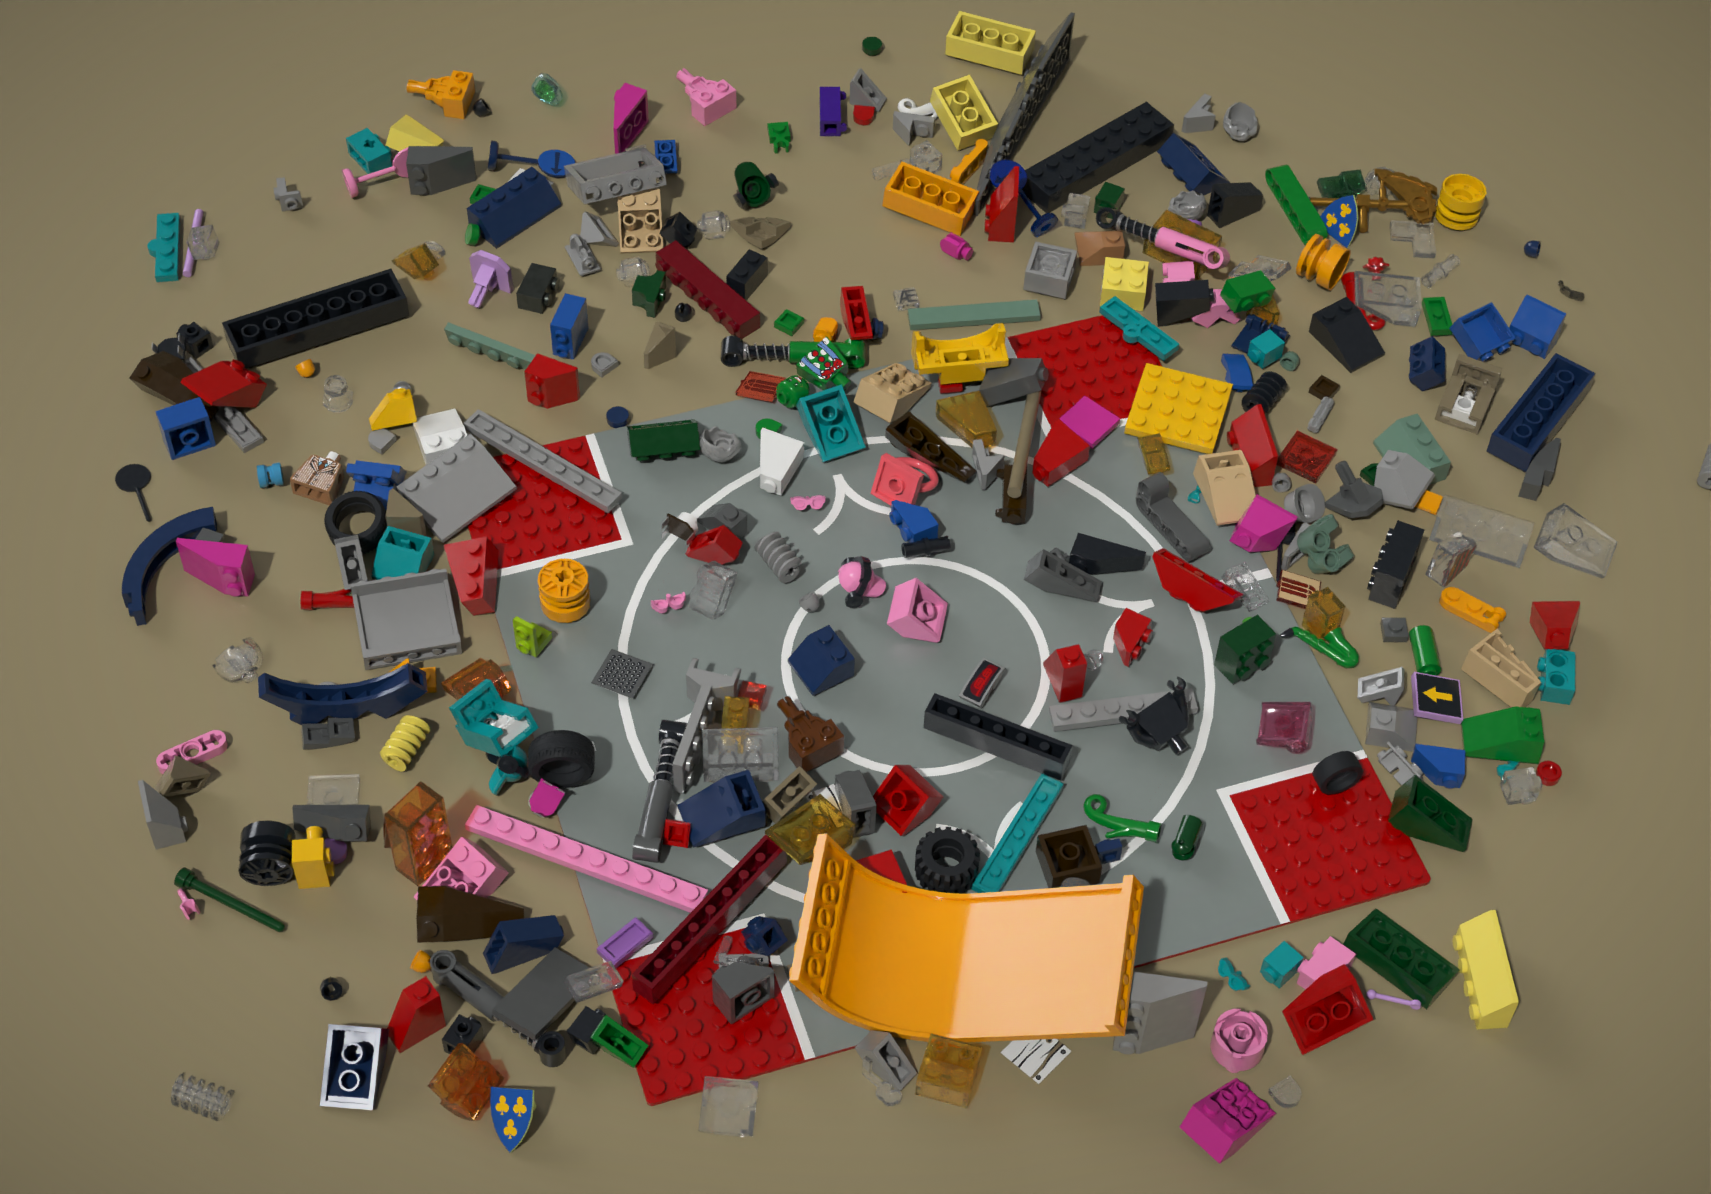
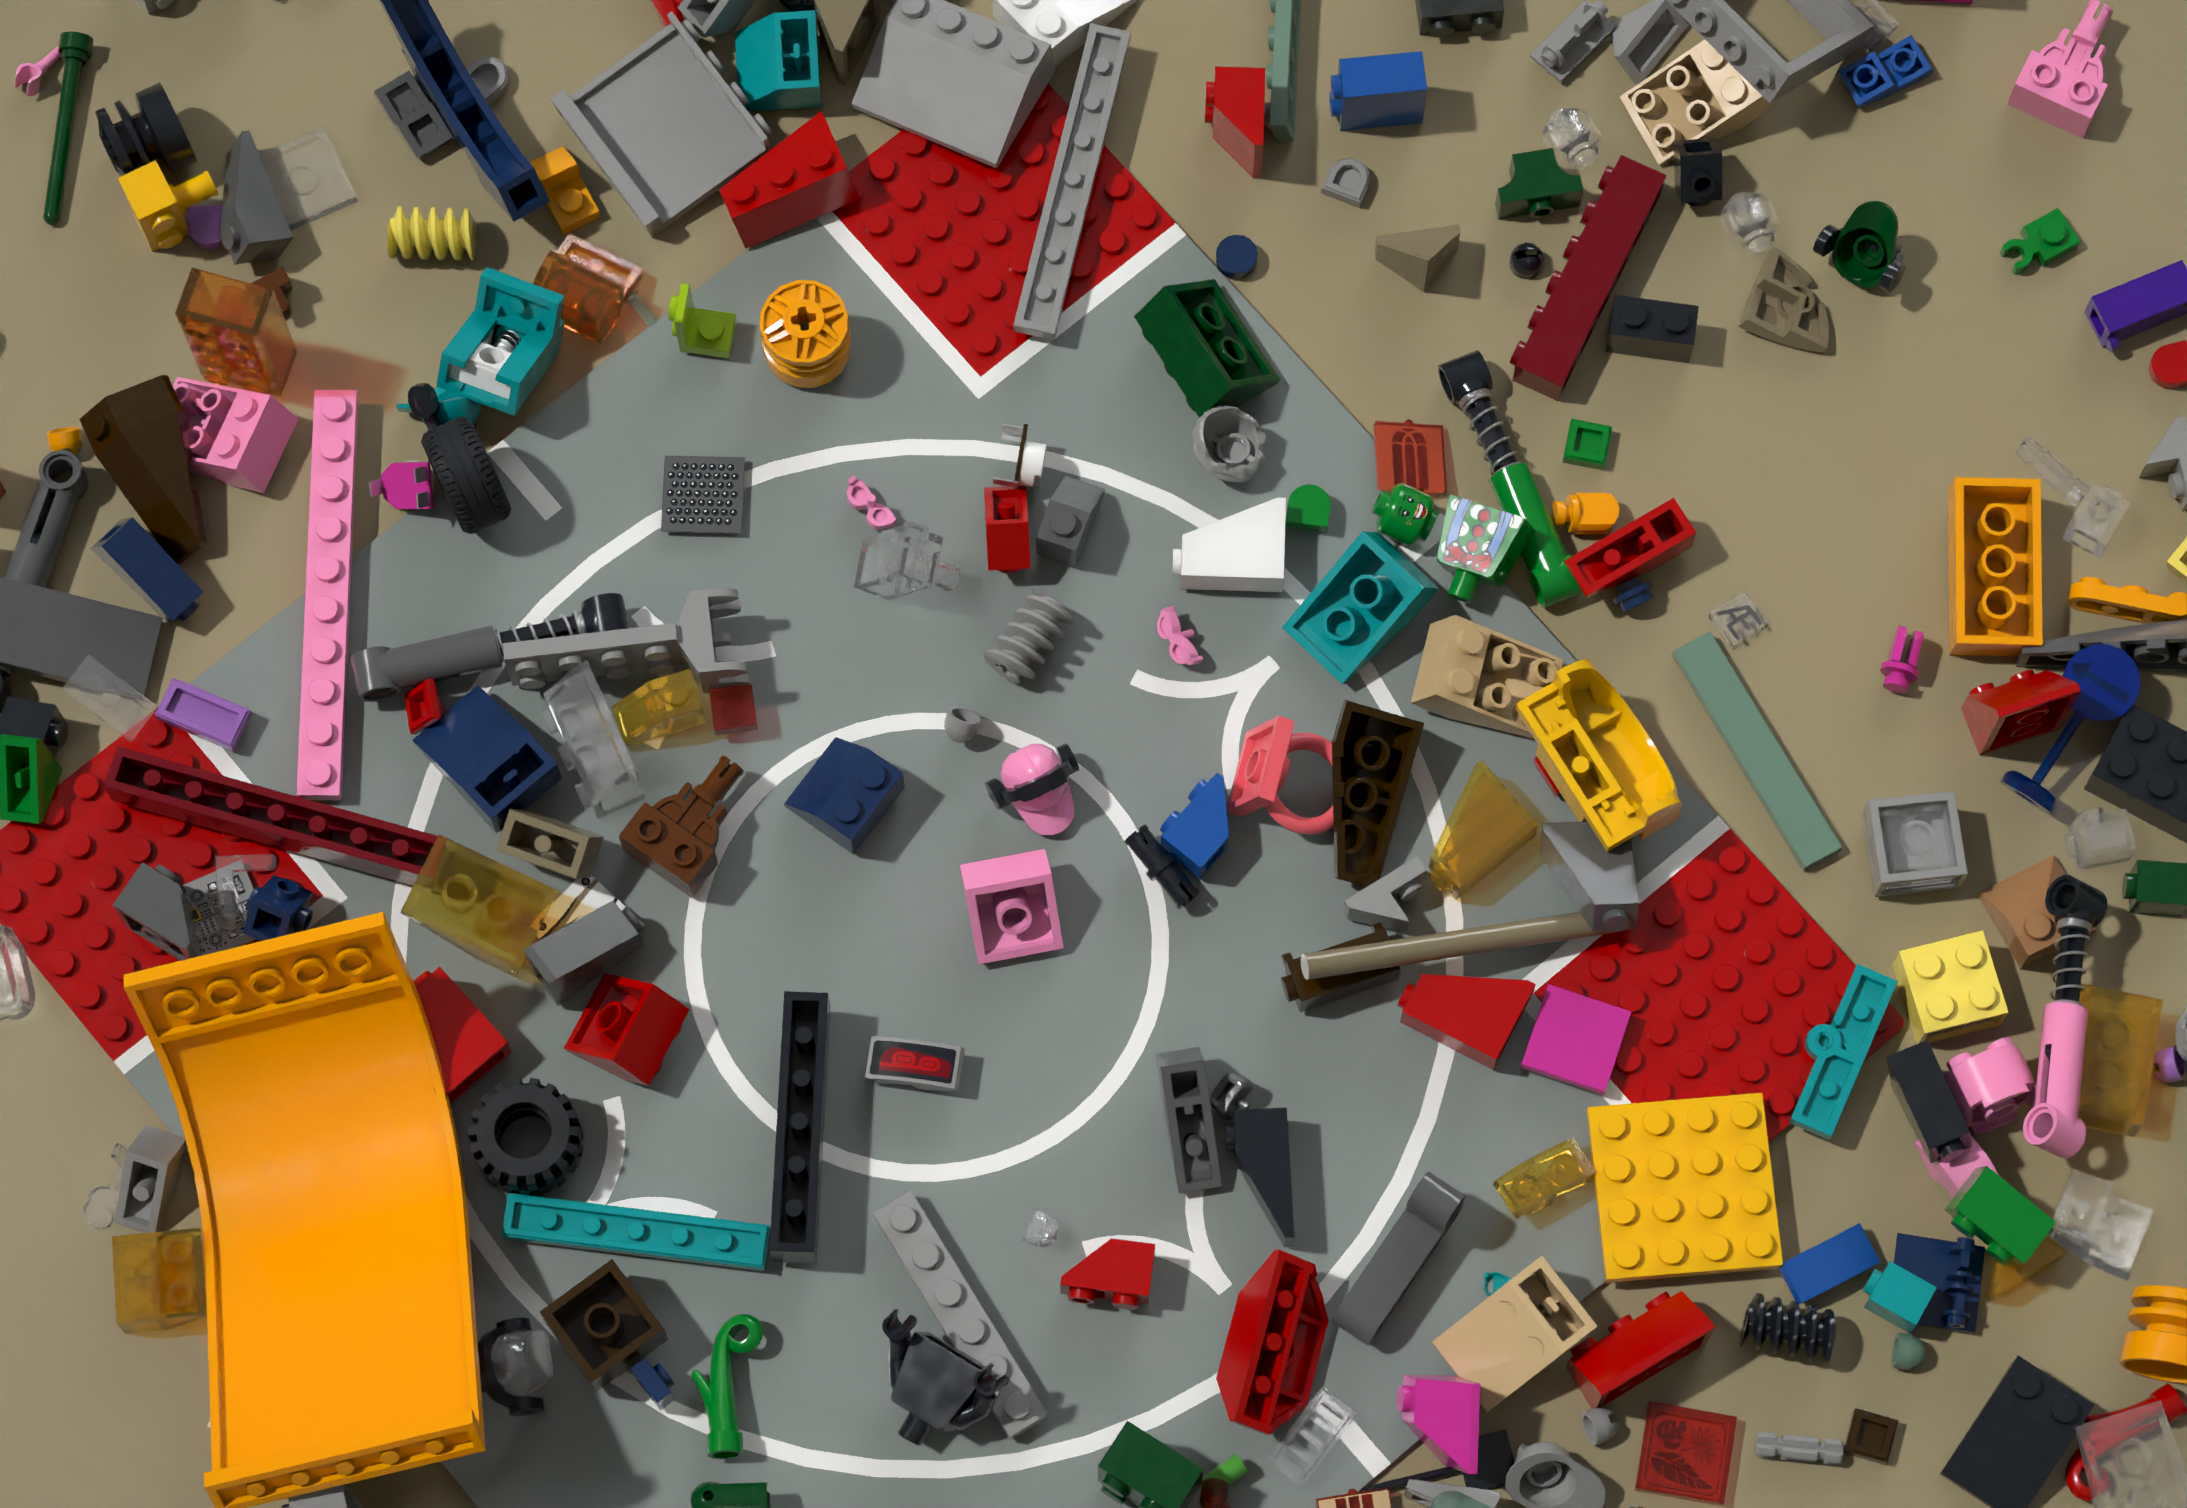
camera: 70 degrees right, 20 degrees up
(1067, 672) = (979, 1188): red slope -> none

